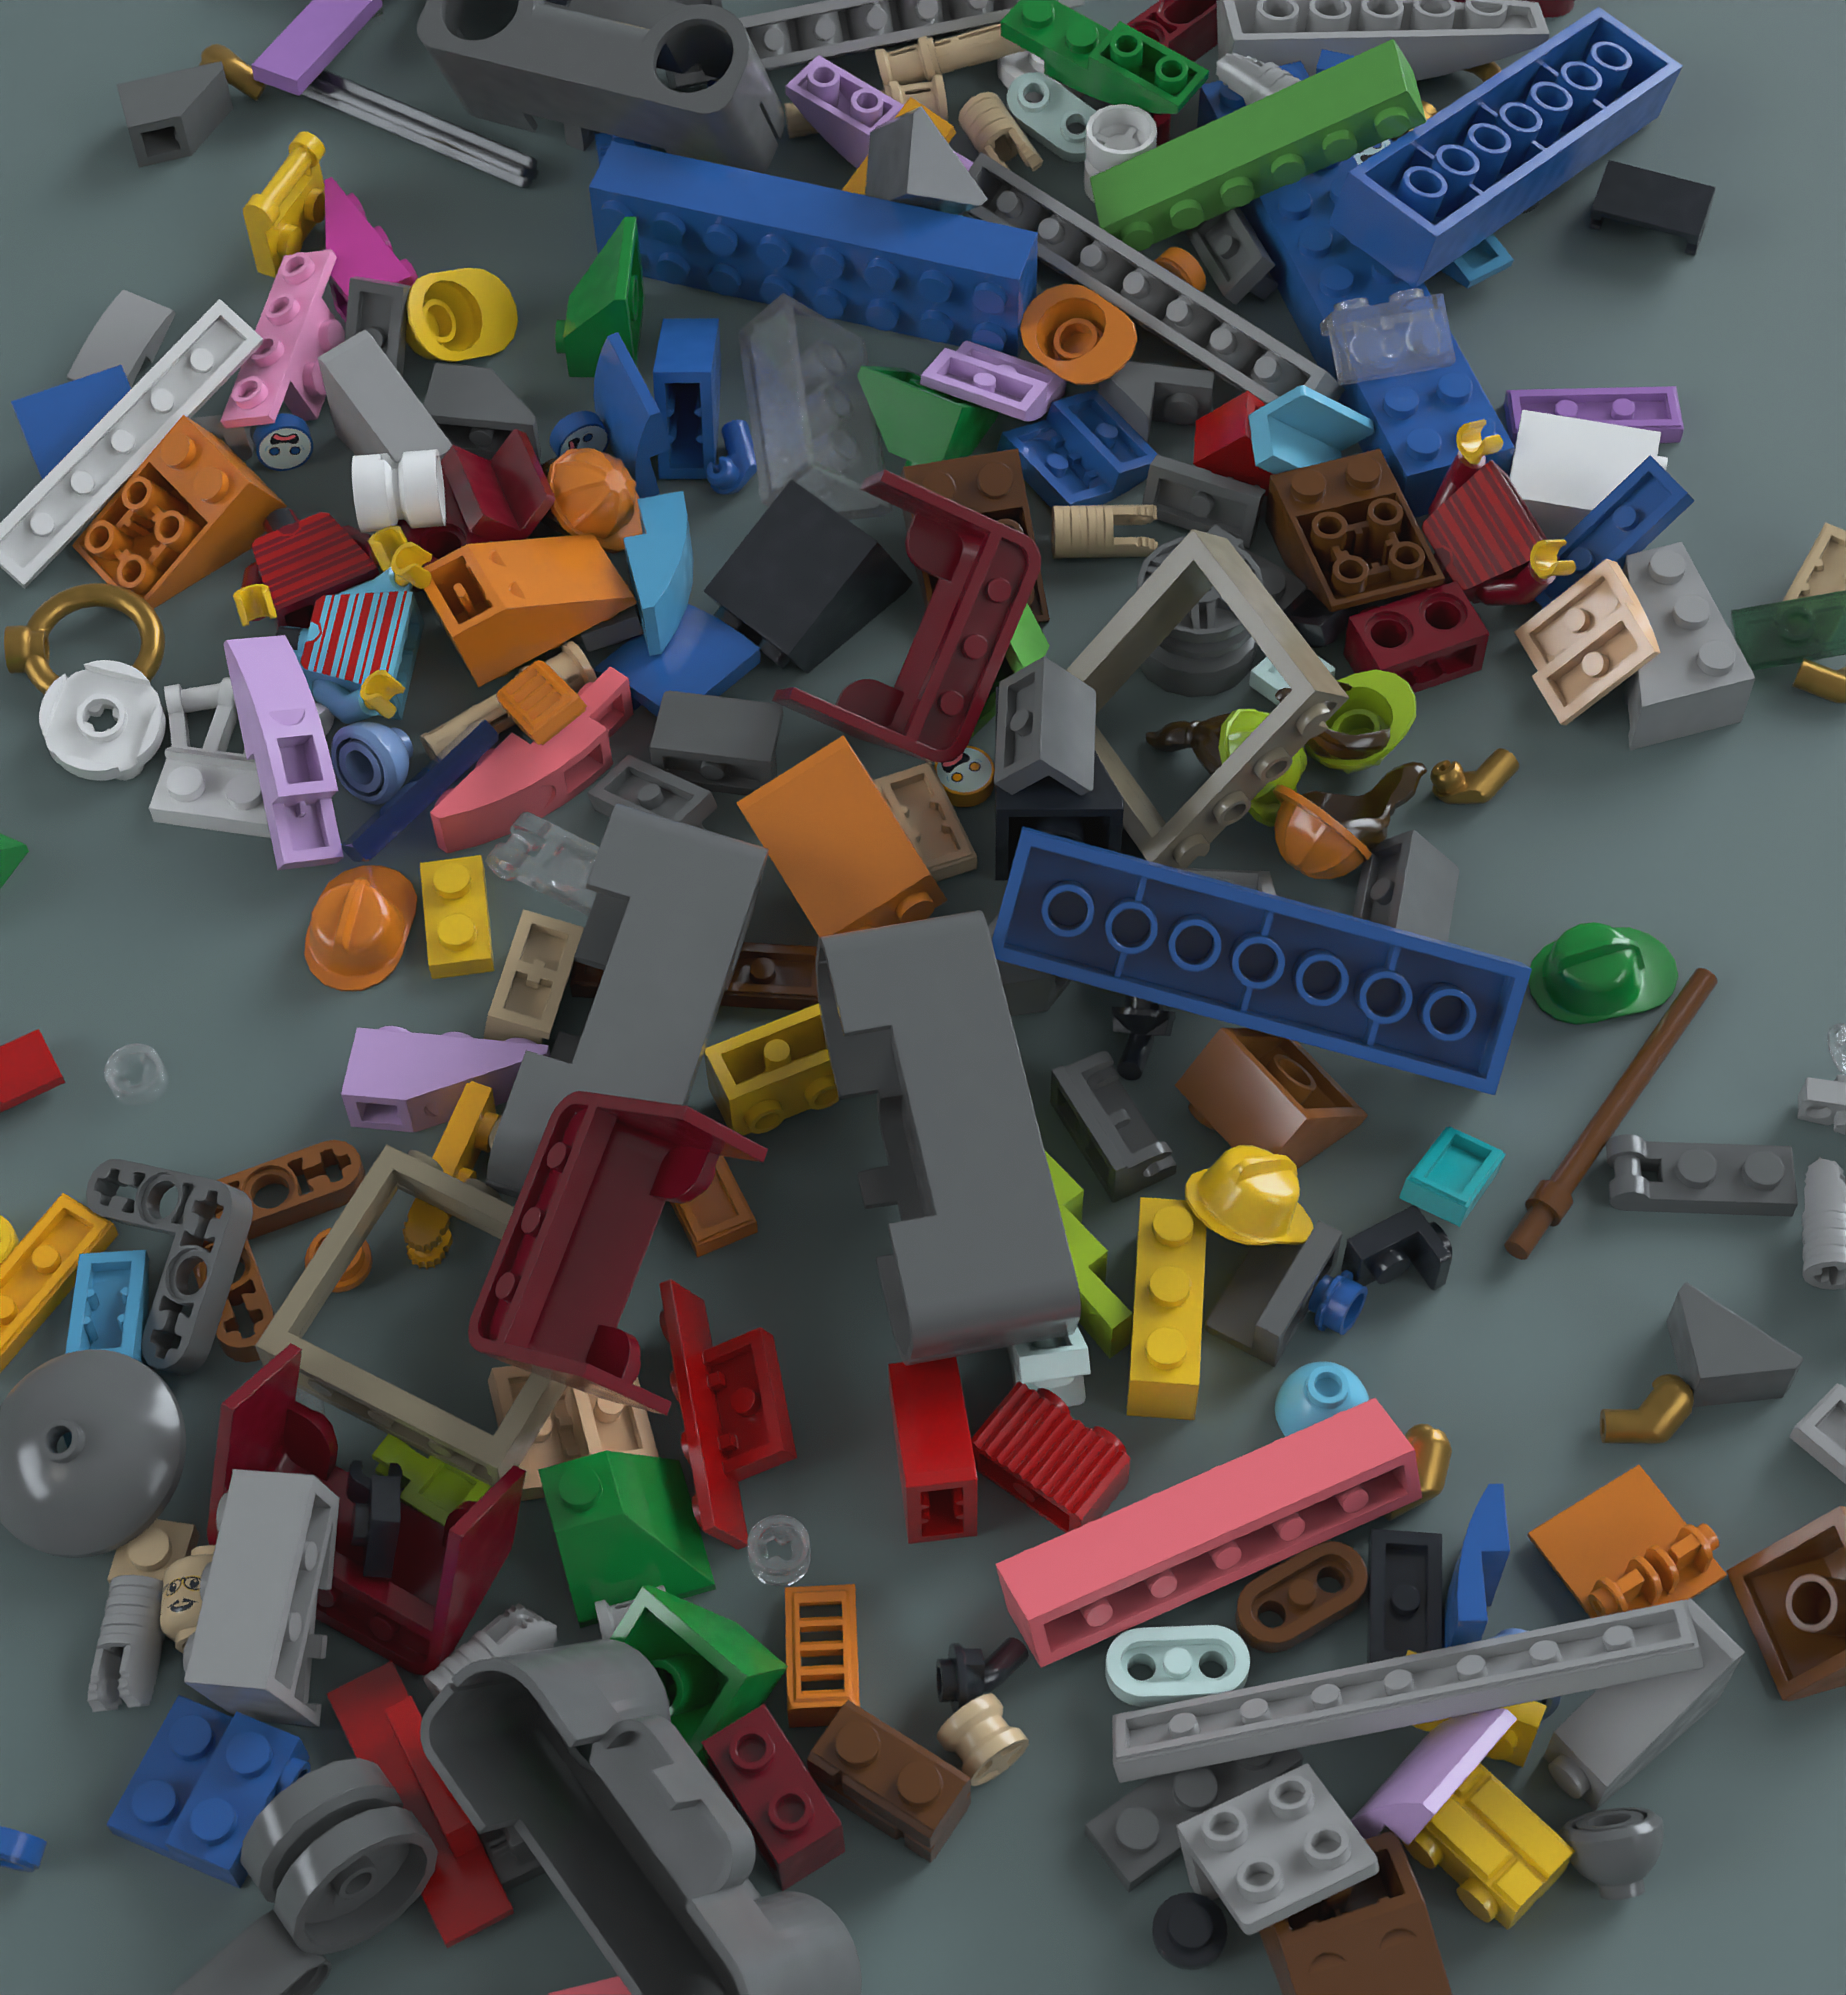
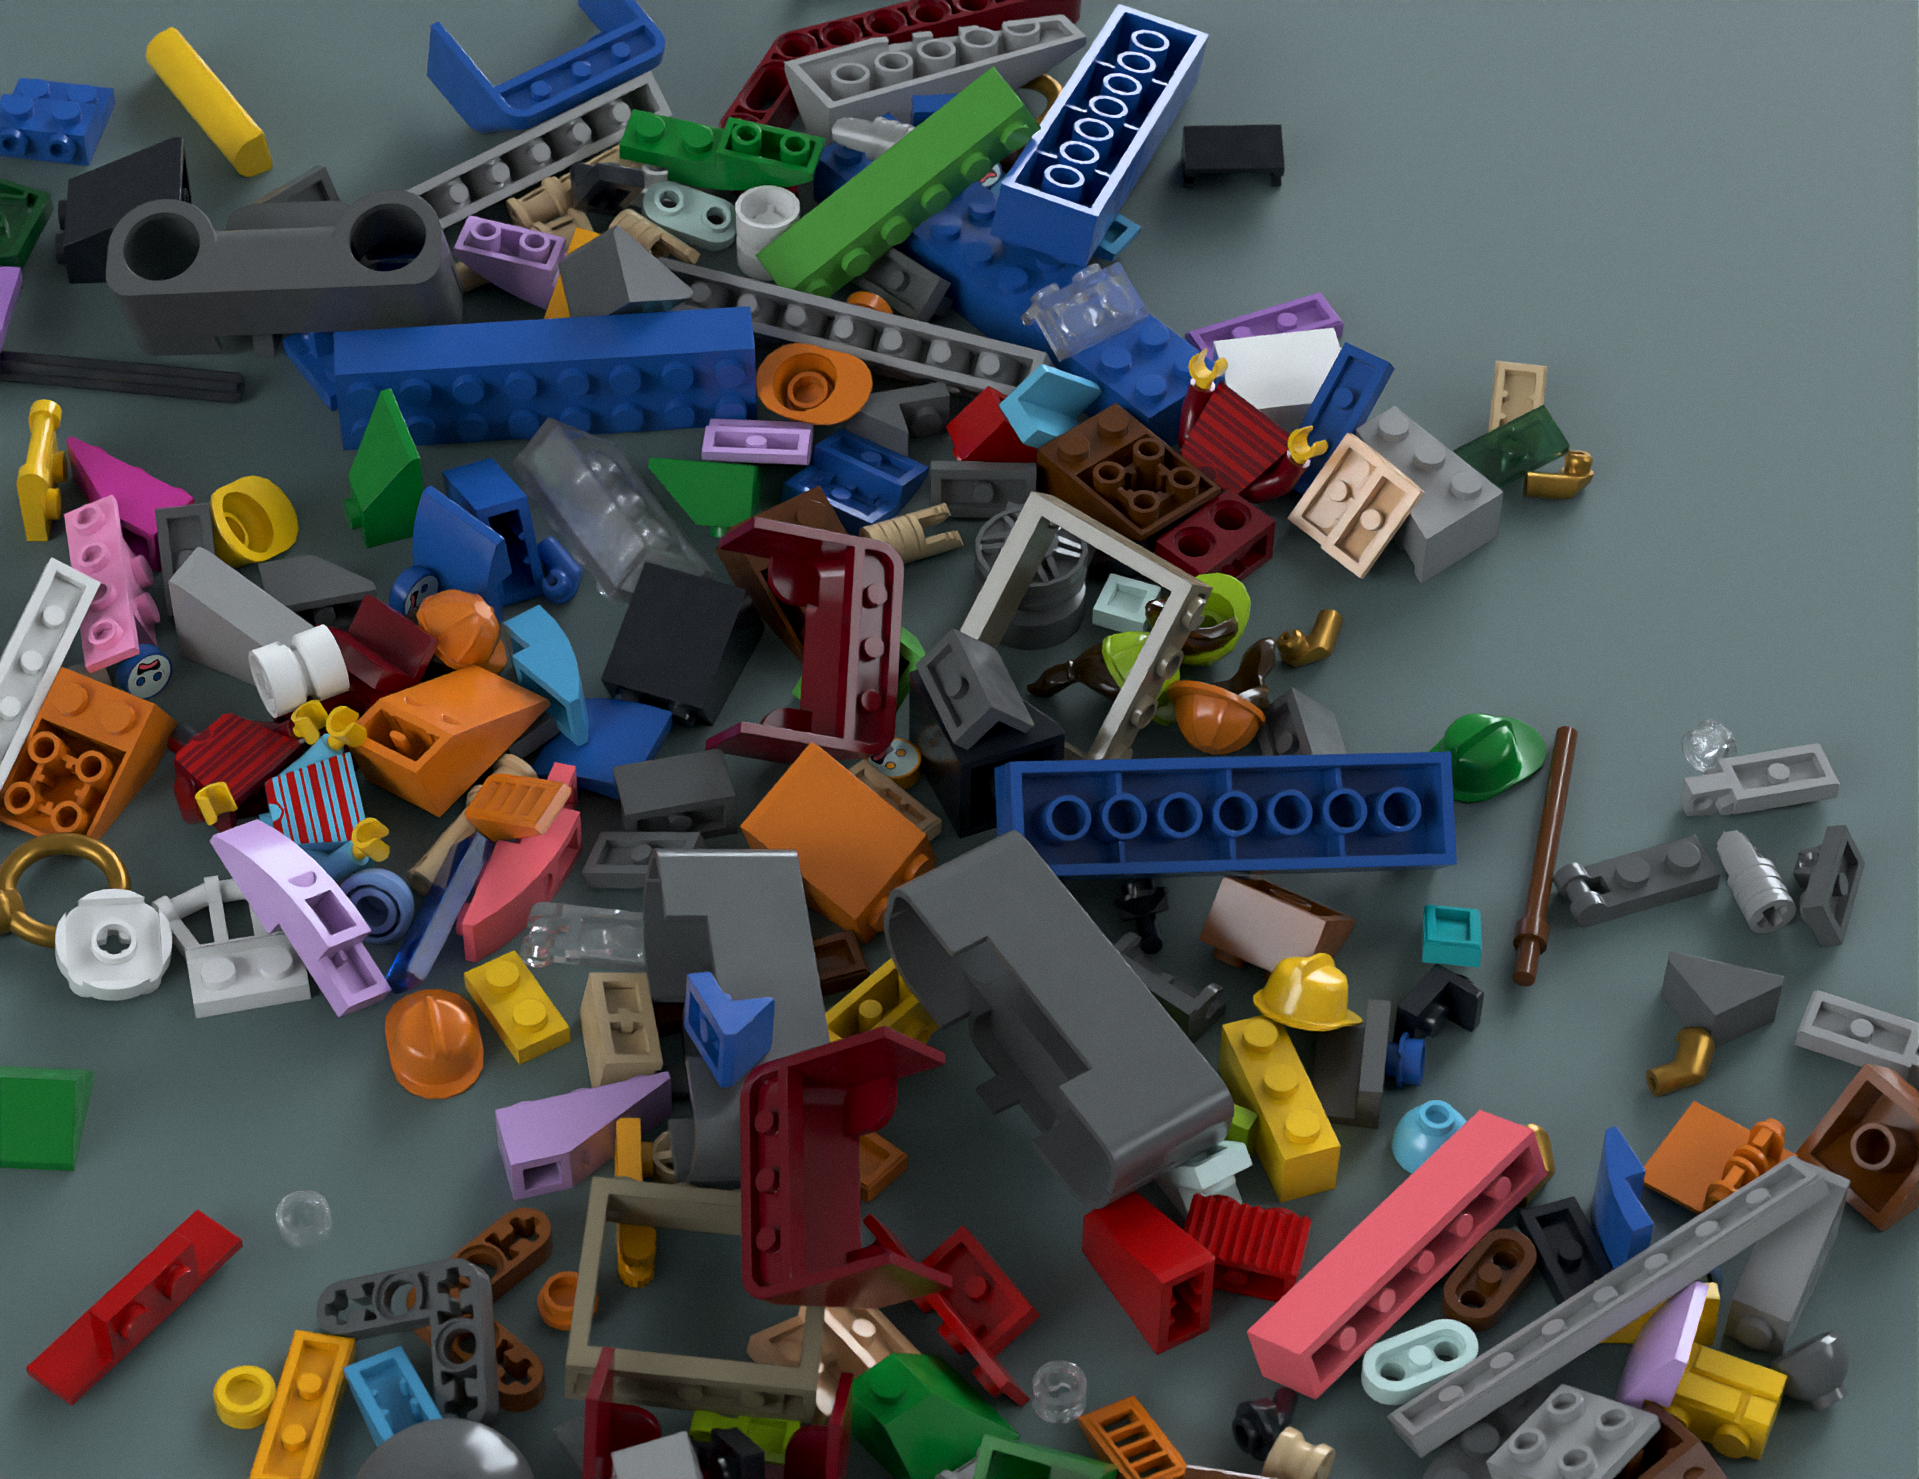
camera: 25 degrees left, 10 degrees down
(577, 1042) = (727, 1032): none -> blue slope
(968, 62) = (604, 187): none -> black bracket

